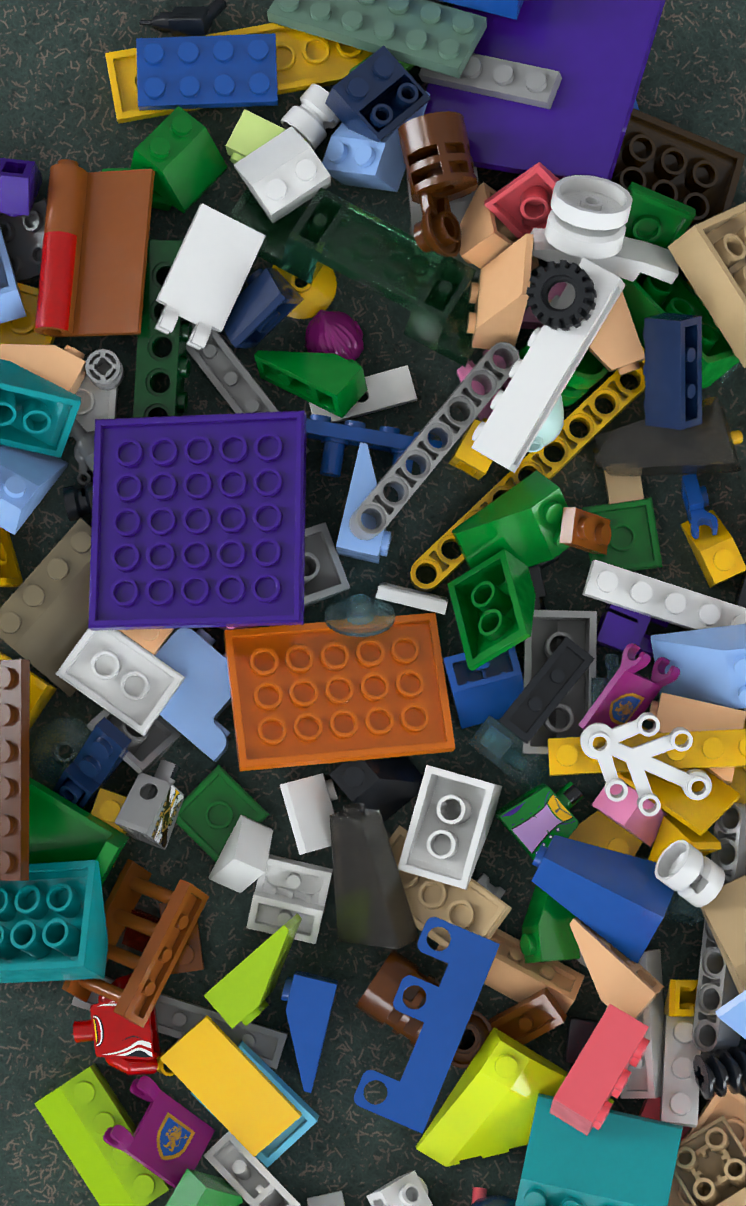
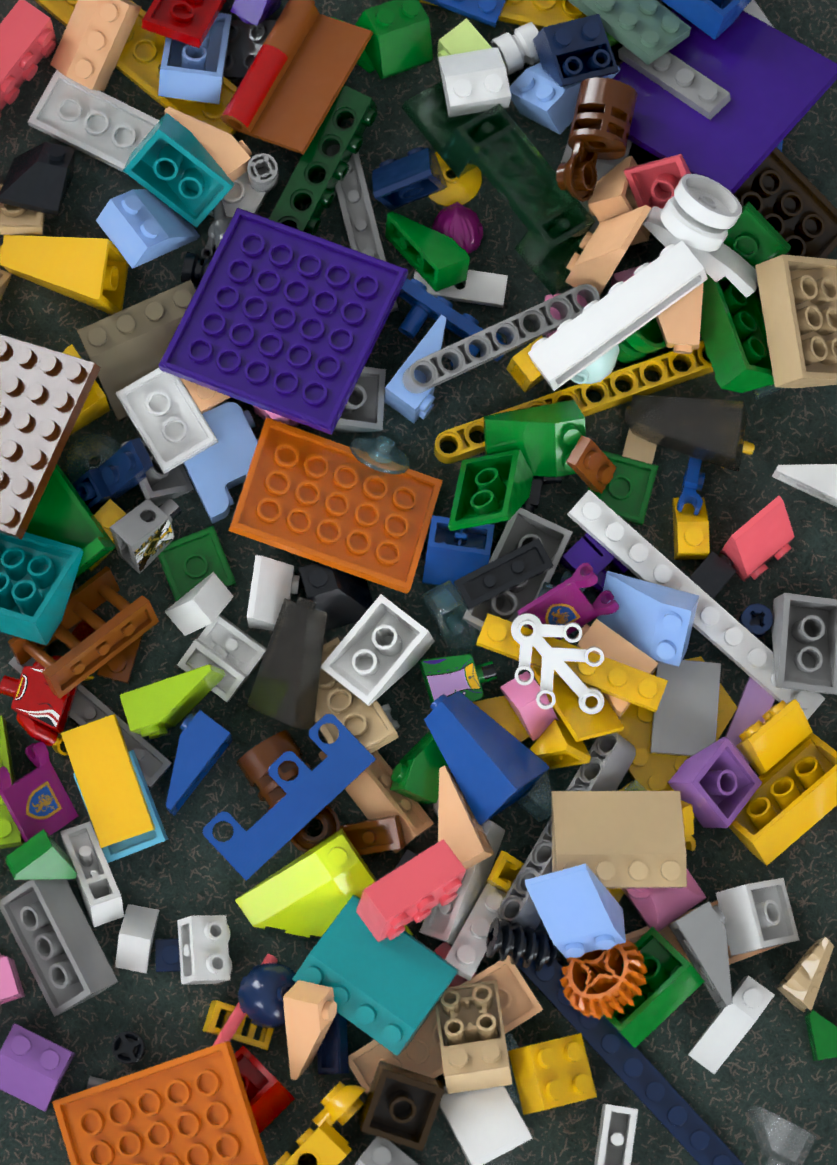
camera: 10 degrees right, 5 degrees down
(207, 274) = (379, 131): white tile -> none
(412, 598) = (428, 460): white tile -> none
(577, 310) = (644, 244): black tyre -> none
(673, 370) = (716, 363): dark blue brick -> none
(690, 873) = (552, 763): white wheel -> none

